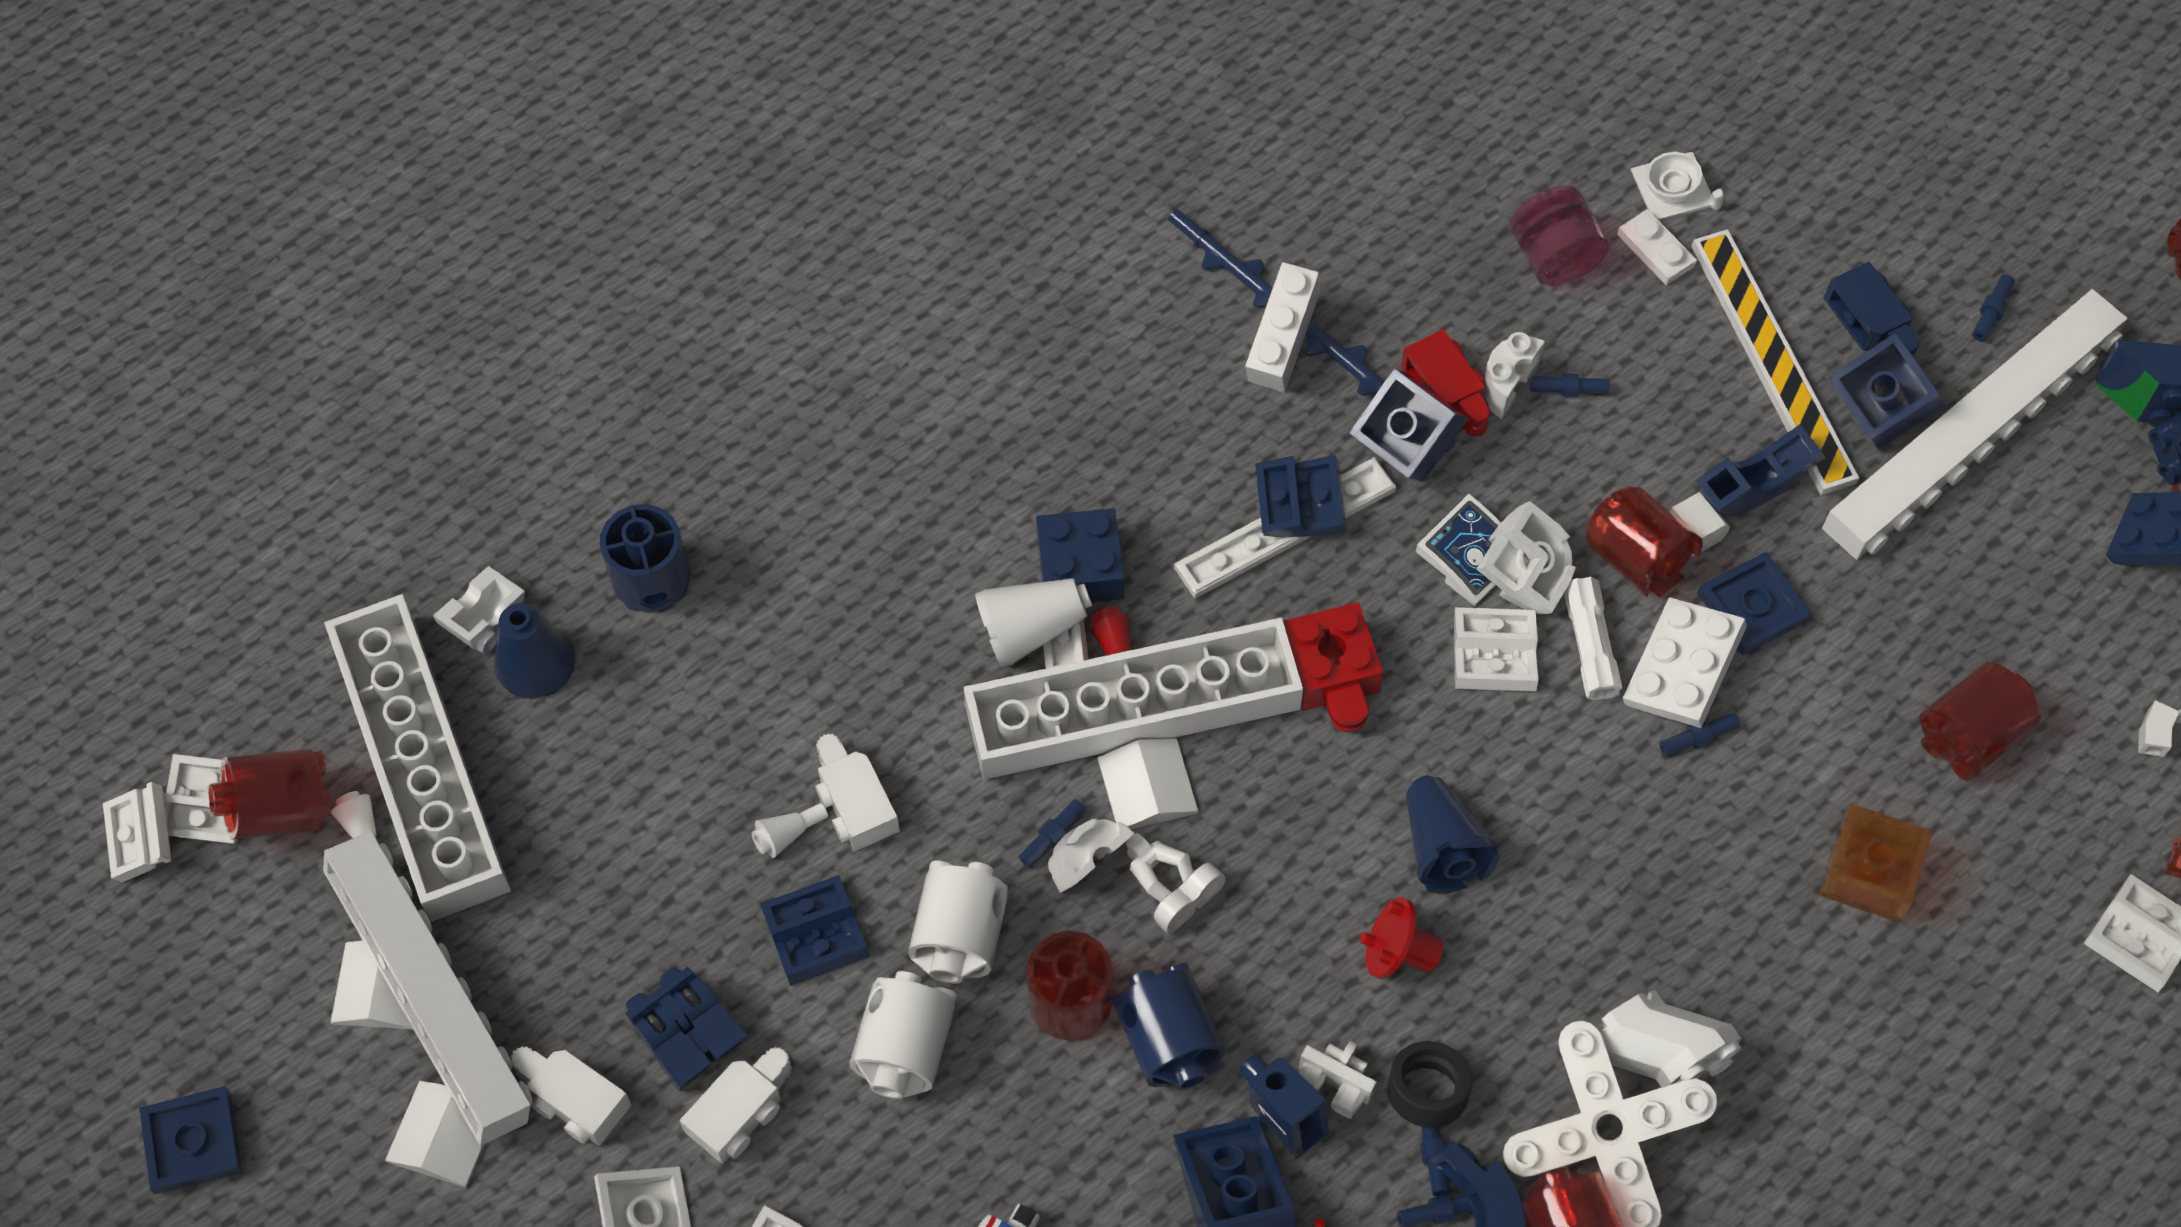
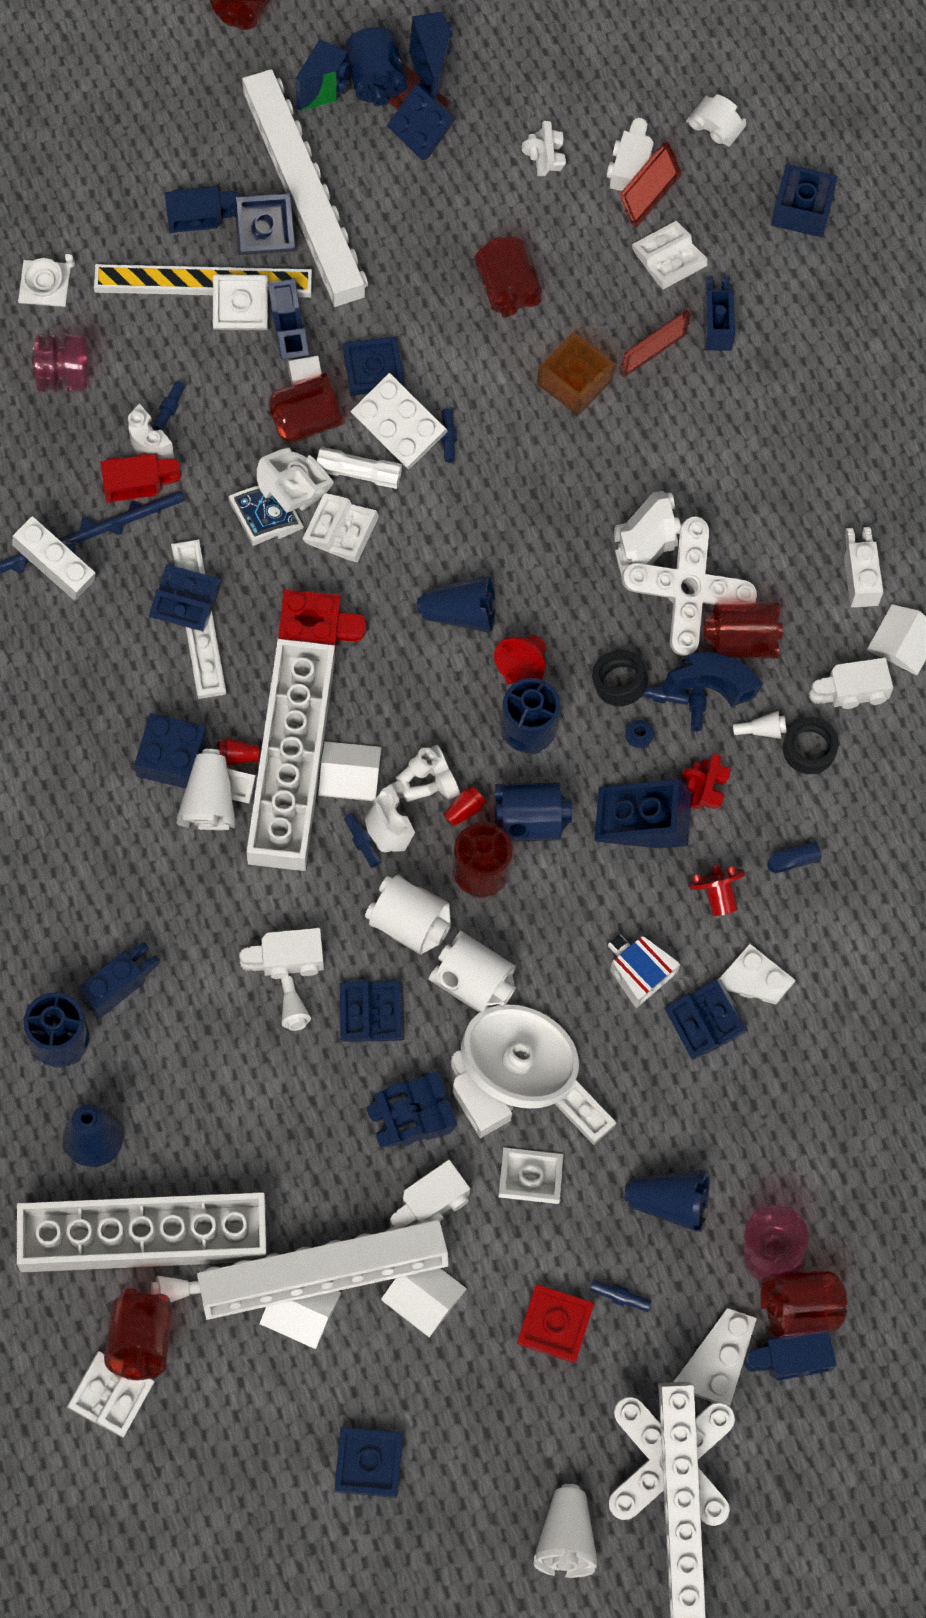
camera: 75 degrees left, 5 degrees up
(136, 832) = (120, 1446): white plate -> none
(477, 613) = (42, 1157): white cylinder -> none
(741, 606) = (116, 981): none -> dark blue hinge
(802, 1135) = (519, 1056): none -> white dish
(1153, 945) = (465, 806): none -> red cone
(1192, 866) = (423, 762): none -> white axle
(1286, 1103) = (602, 763): dark blue torso -> none
(1310, 975) = (530, 715): none -> dark blue cylinder
(1341, 1071) = (591, 727): white hips -> none
(1357, 1155) = (639, 741): none -> dark blue plate
(1408, 425) = (165, 510): brick -> none
(1656, 247) = (87, 312): white plate -> none
(1761, 409) = (240, 302): none -> white tile
(1981, 955) = (655, 343): none -> clear red piece
(1993, 308) = (223, 140): dark blue bar -> none
(2077, 1029) = (718, 316): none -> dark blue hinge
(2156, 730) = (547, 187): white piece -> none

